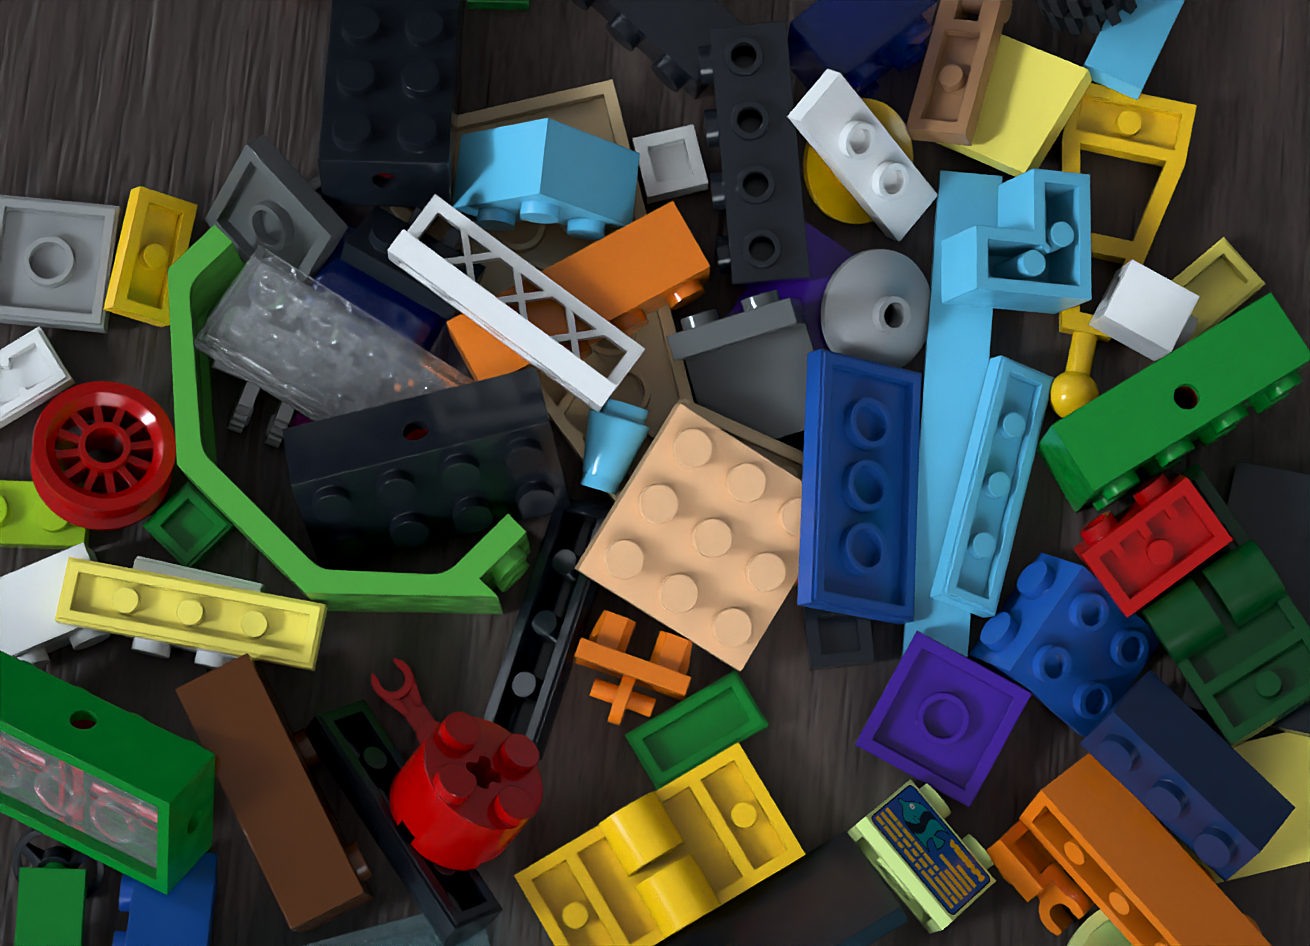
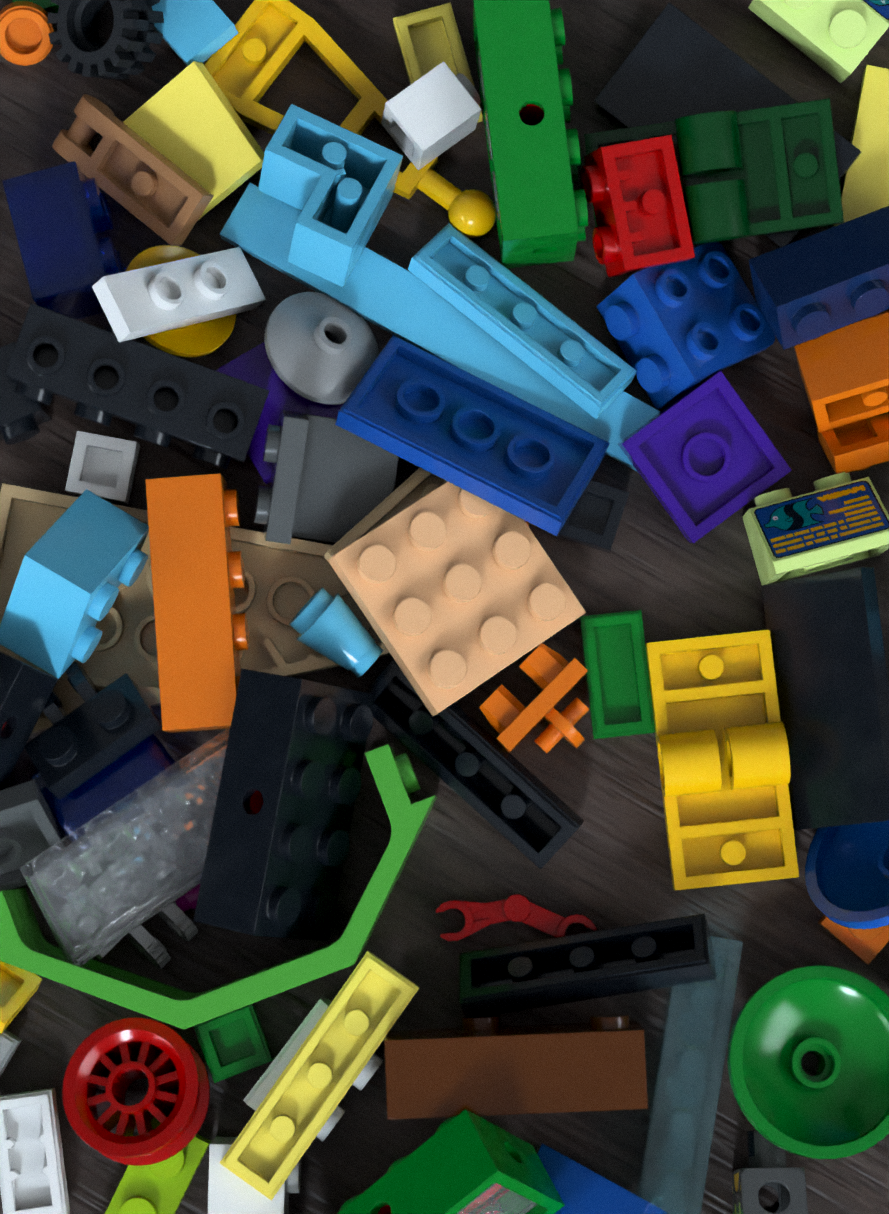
camera: 55 degrees left, 5 degrees up
(467, 791) = (589, 898): red brick -> none
(502, 321) = (188, 680): white fence -> none

